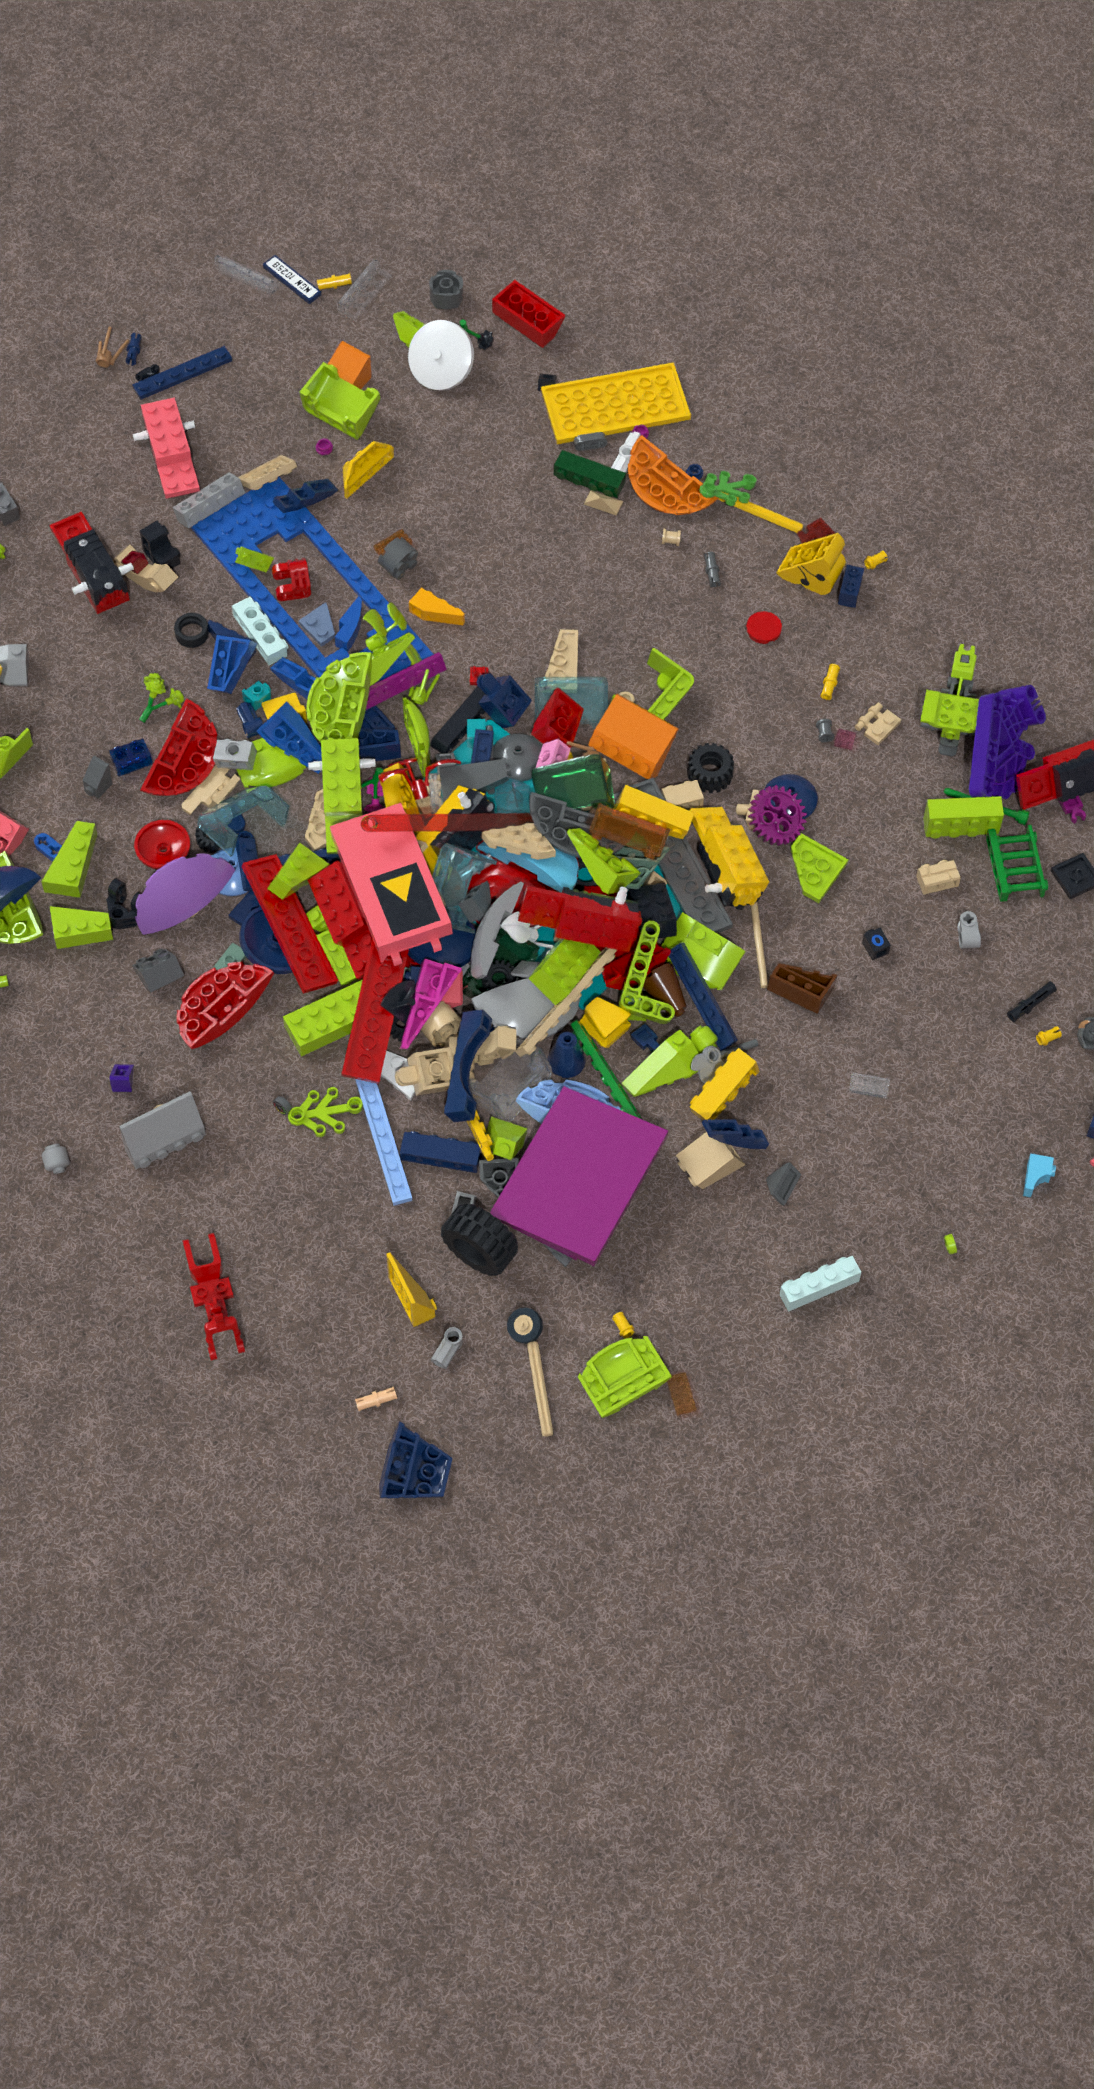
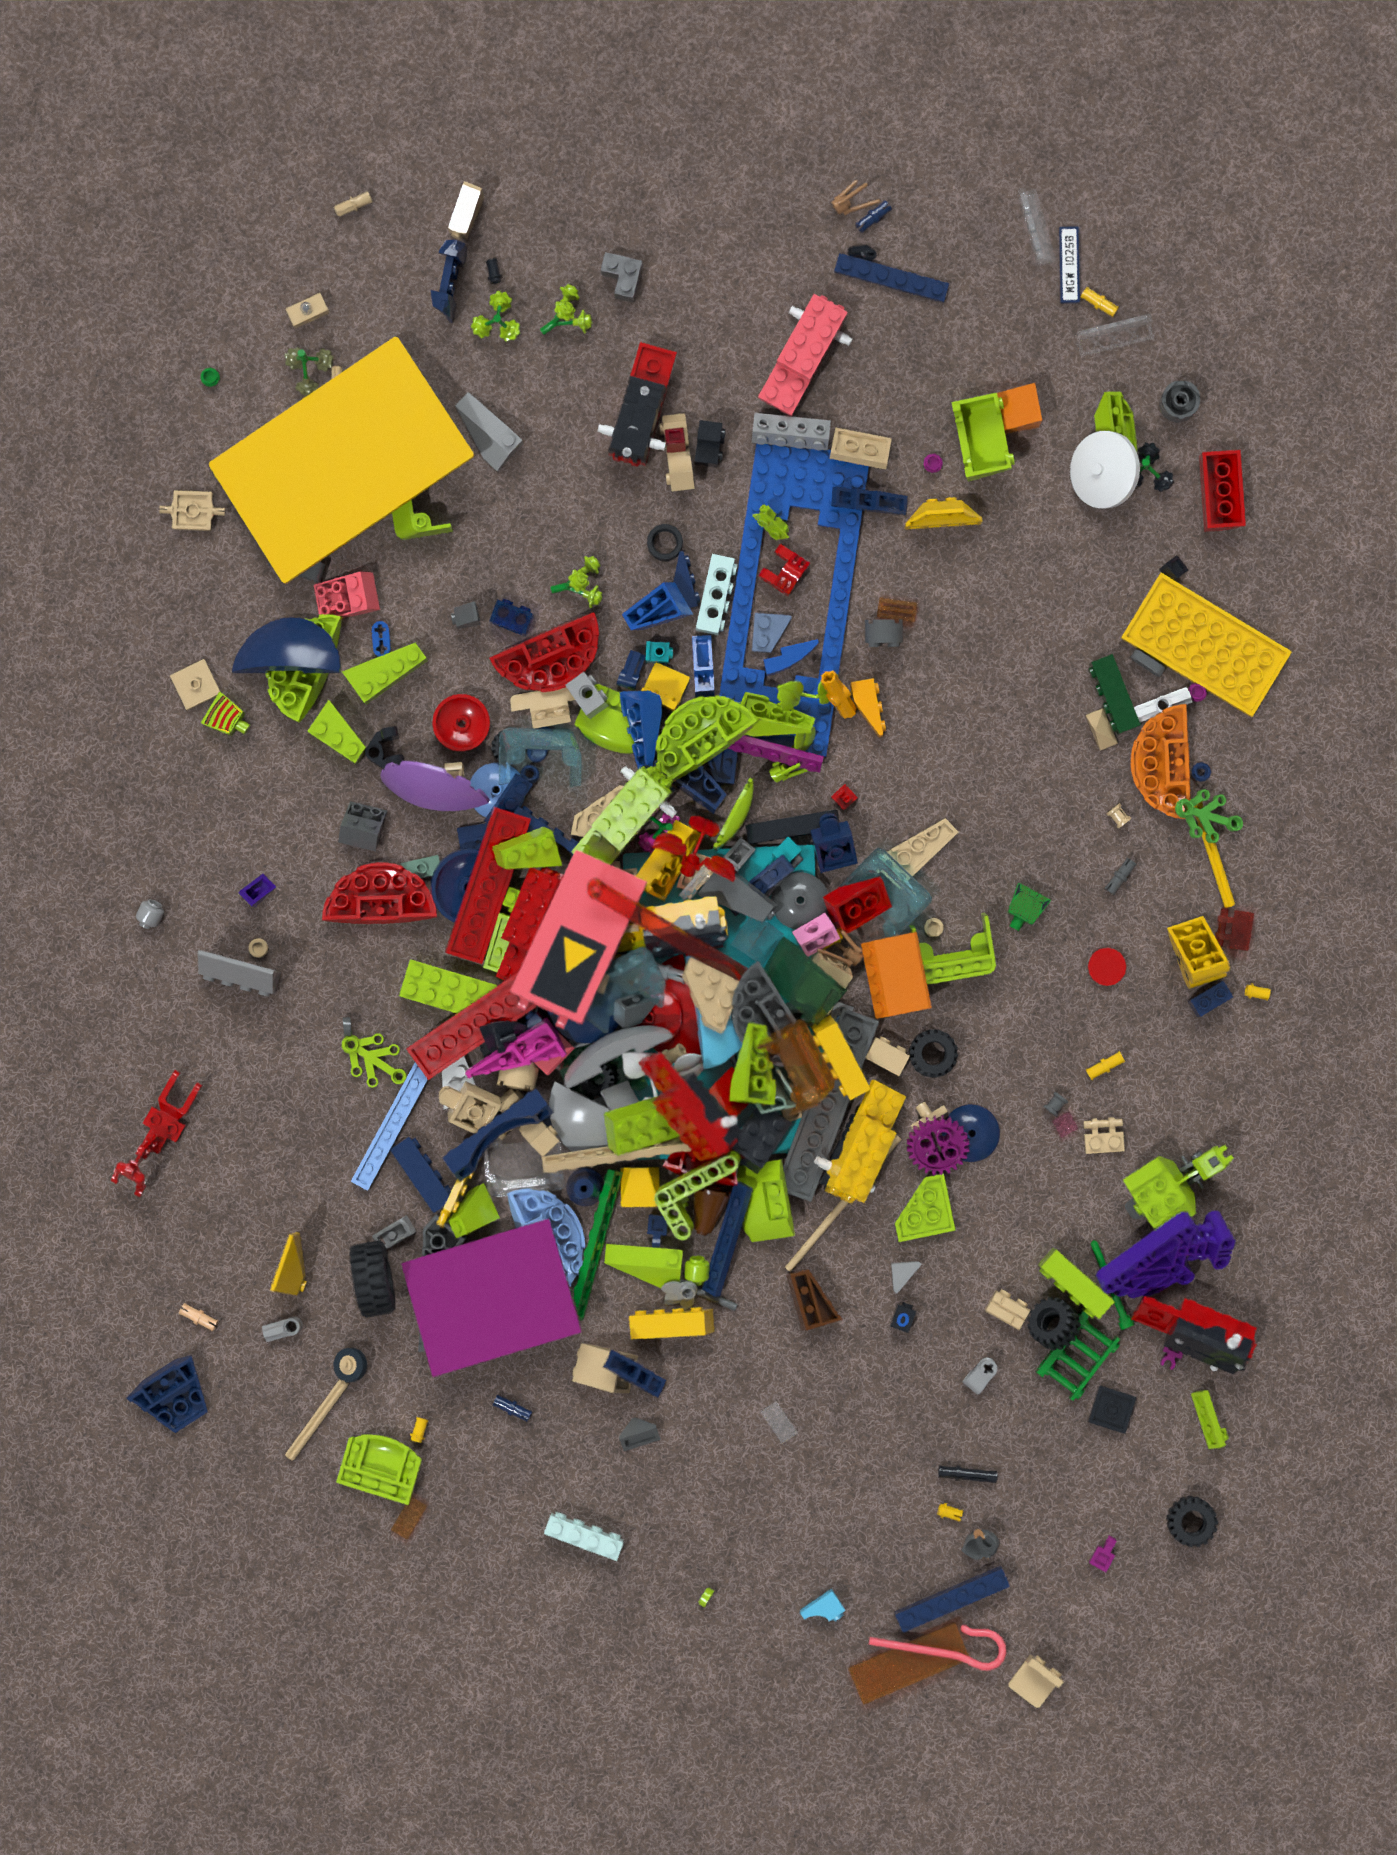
camera: 50 degrees right, 25 degrees up
(408, 611) = (838, 694): none -> light orange piece
(671, 634) = (1026, 906): none -> green torso
(674, 1247) = (512, 1408): none -> dark blue pin
(843, 918) = (902, 1273): none -> light grey slope
(988, 857) = (1063, 1333): none -> black tyre

